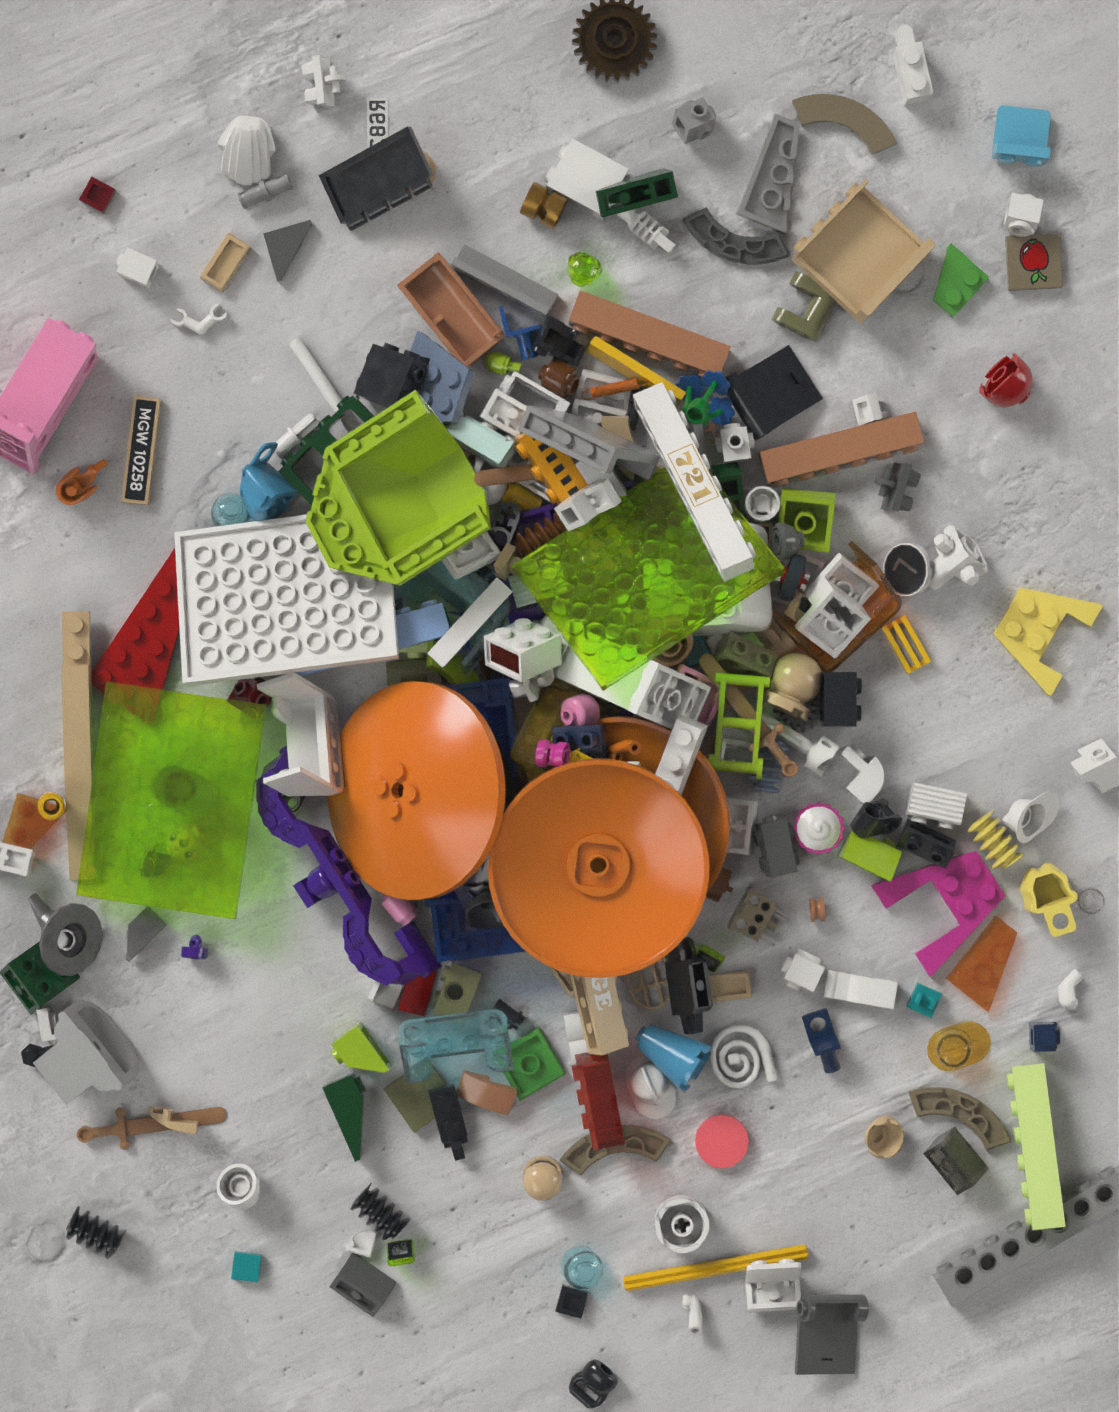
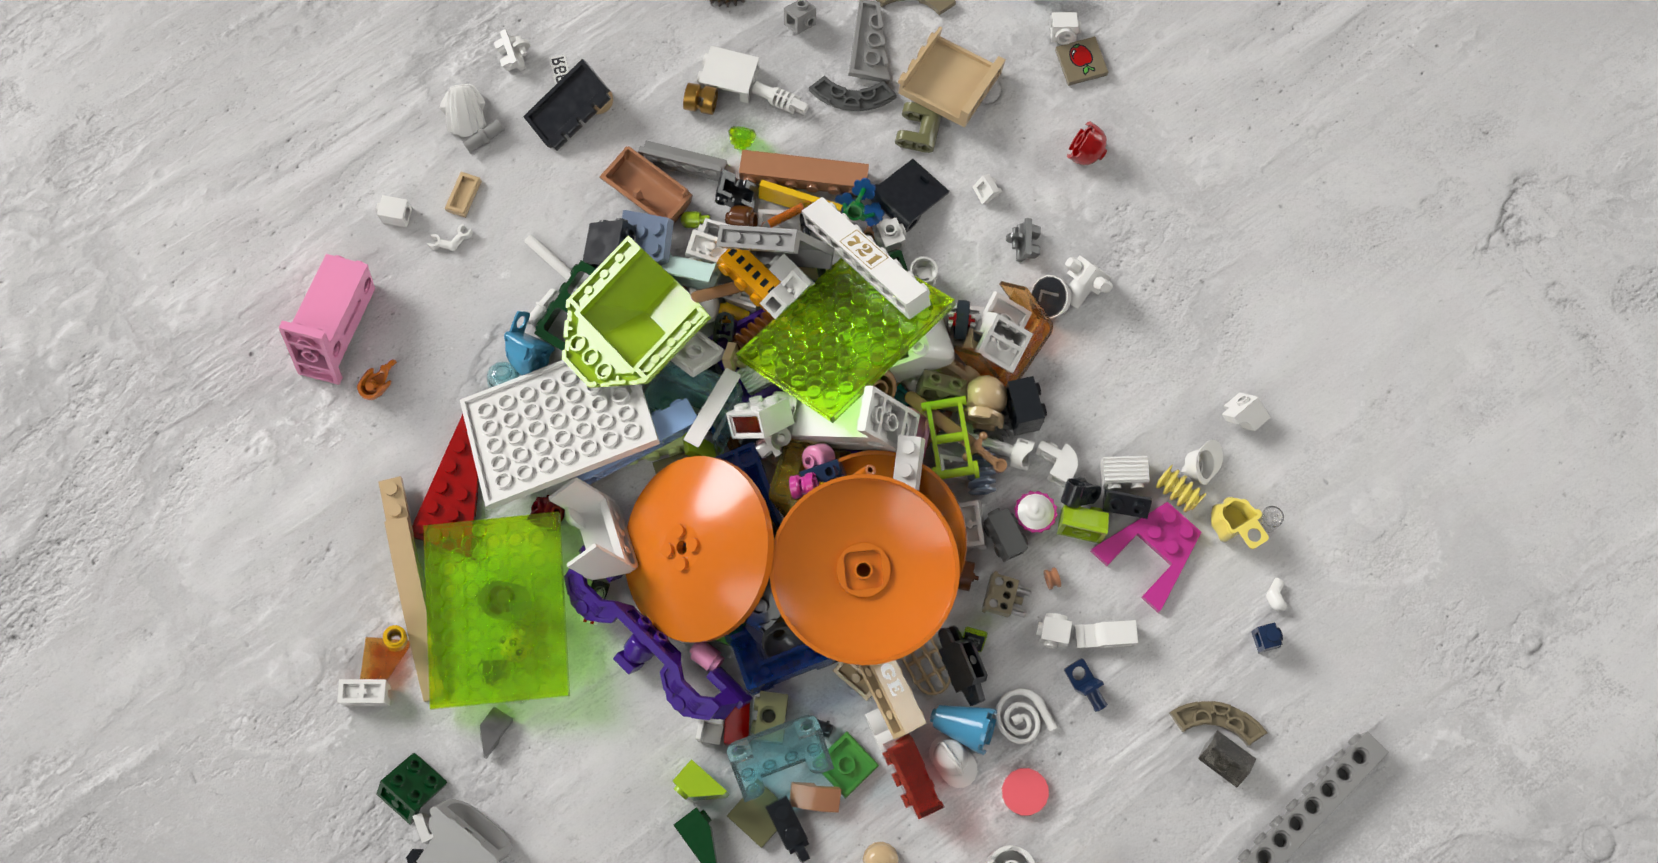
camera: 10 degrees left, 15 degrees down
(68, 936) = (429, 747): flat silver piece -> none
(97, 195) = (353, 167): dark red tile -> none
(141, 450) = (422, 346): tile -> none
(194, 950) = (540, 734): dark purple tile -> none
(284, 245) = (507, 171): dark grey tile -> none
(523, 336) = (705, 193): blue bracket -> none
(637, 192) = (769, 71): dark green slope -> none
(637, 1141) = (956, 809): dark tan tile -> none
(730, 986) = (998, 659): tan tile -> none
(786, 540) = (951, 288): dark grey brick -> none
(809, 513) = (961, 277): lime slope -> none
(841, 448) = (974, 221): nougat brick -> none
(884, 1137) = (1161, 753): tan hair -> none
(917, 664) = (1046, 348): yellow tile -> none
(924, 1000) = (1160, 632): teal tile -> none
(957, 281) = (1028, 86): bright green wing -> none
(958, 1046) = (1199, 664): clear yellow piece -> none
(983, 963) = (1200, 591): clear orange wing -> none
(1032, 624) = (1158, 321): light yellow wing -> none
(1037, 1147) = (1292, 730): yellowish green brick -> none

